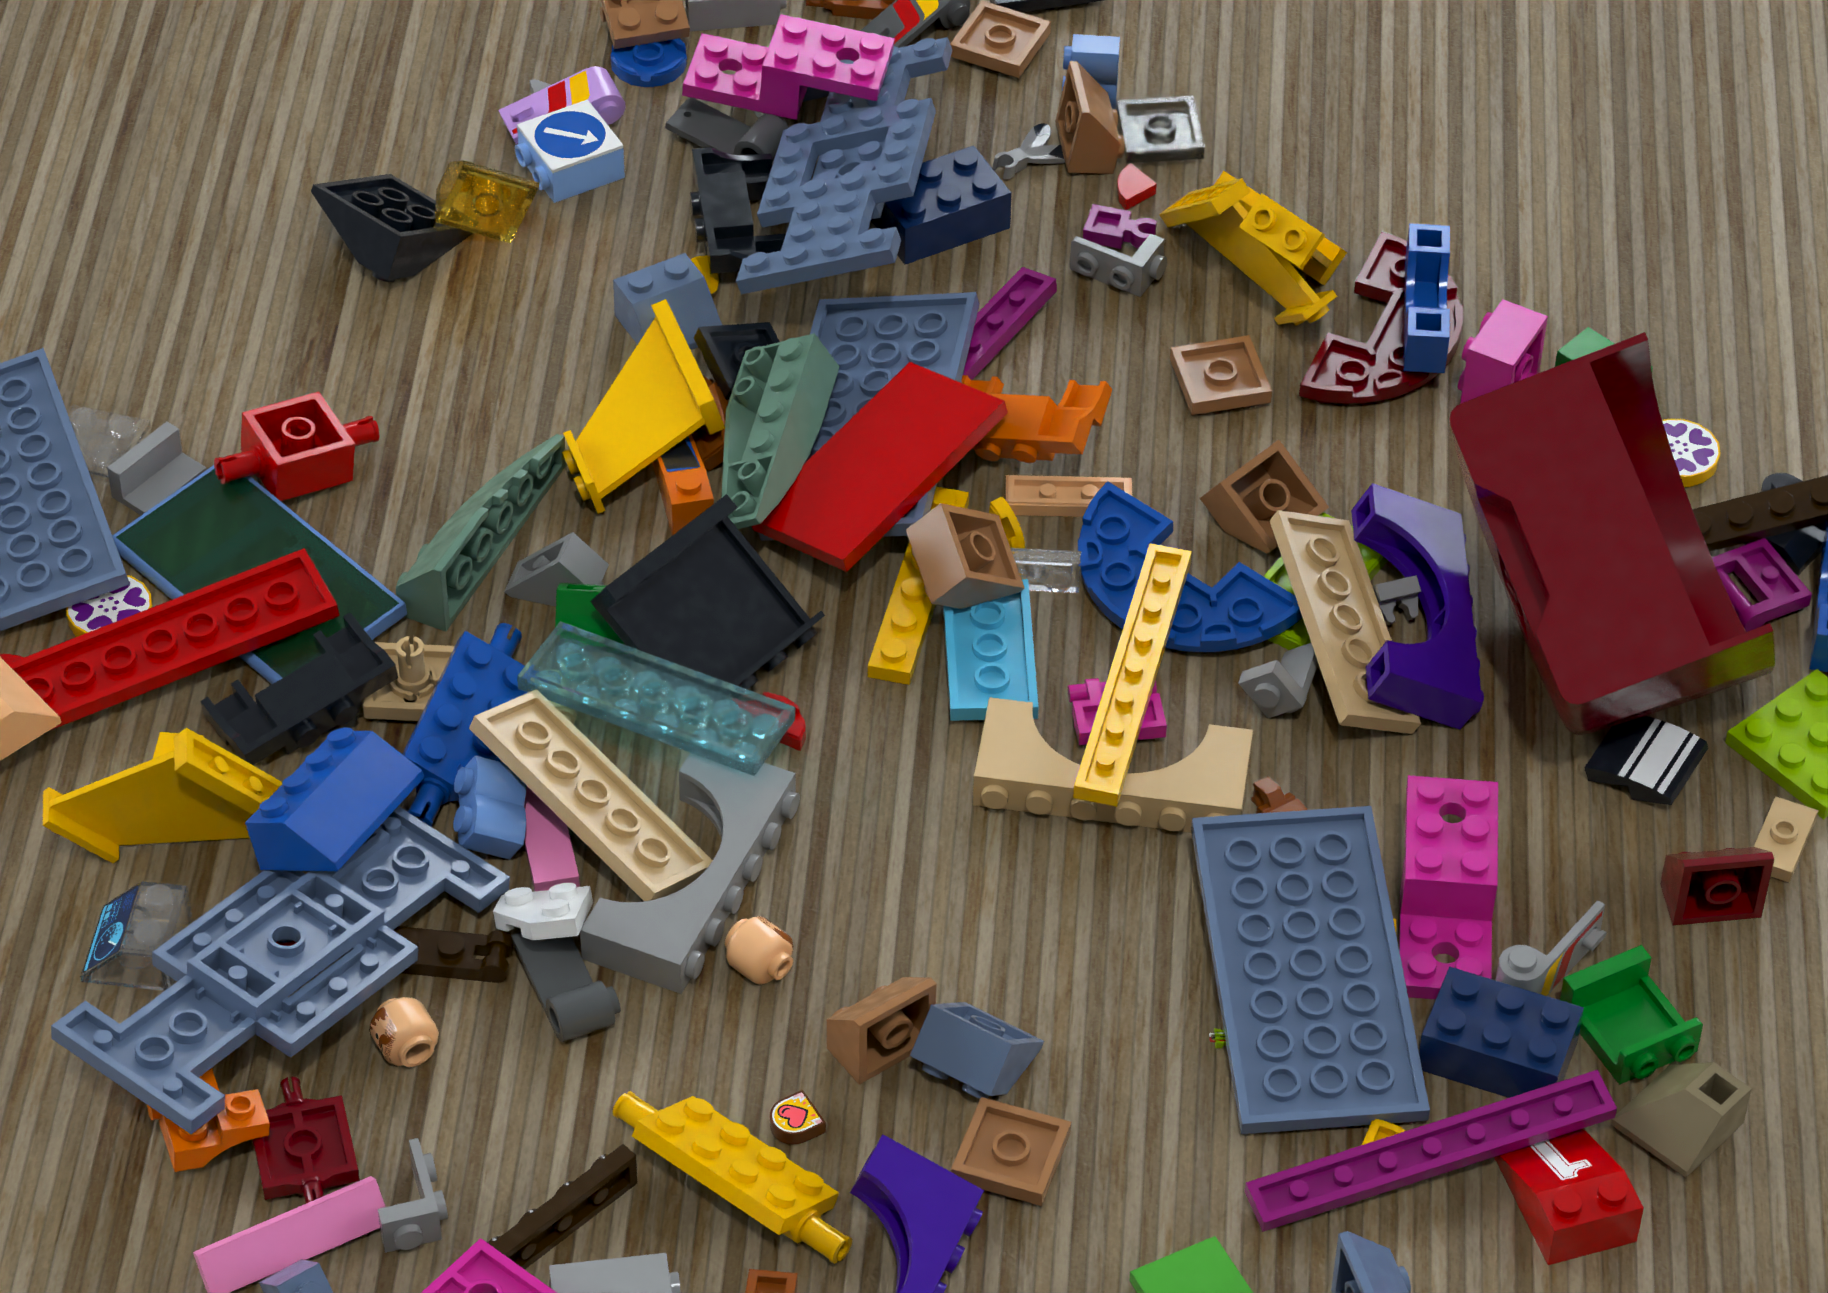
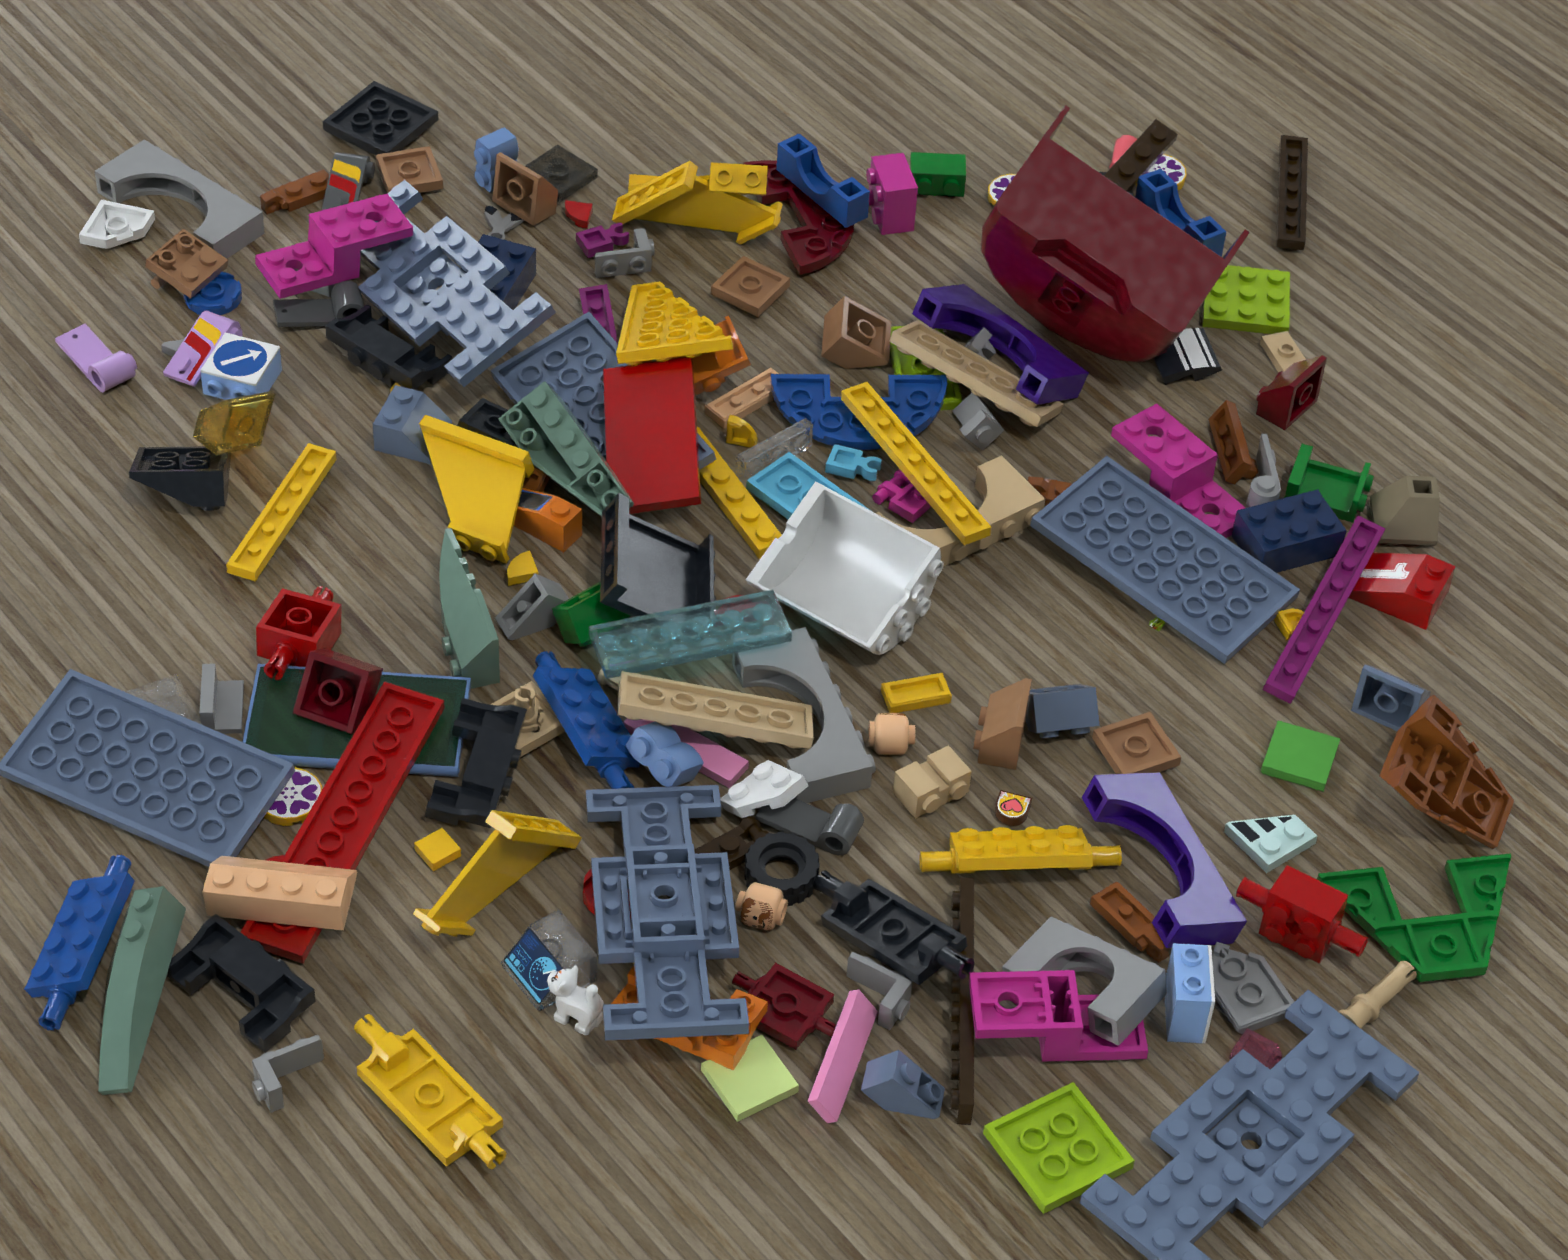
camera: 45 degrees left, 0 degrees up
(102, 979) = (575, 1001): none -> white animal
(188, 1201) = (754, 1083): none -> yellowish green tile
(255, 522) = (336, 689): none -> dark red slope
(331, 803) = (592, 806): blue slope -> none
(438, 320) = (281, 512): none -> yellow plate
(452, 58) = (95, 359): none -> lavender door
(467, 979) = (787, 847): none -> black tyre
(490, 1145) = (892, 929): none -> black plate
(603, 528) = (521, 569): none -> yellow tile
(737, 1030) = (932, 783): none -> tan brick
(850, 928) = (916, 693): none -> yellow tile
(898, 748) = (850, 570): none -> white cylinder
(963, 557) = (757, 457): medium nougat slope -> none
(1027, 358) = (665, 328): none -> yellow wing
(1085, 632) = (849, 462): none -> medium azure plate
(1548, 919) = (1231, 444): none -> dark orange hinge

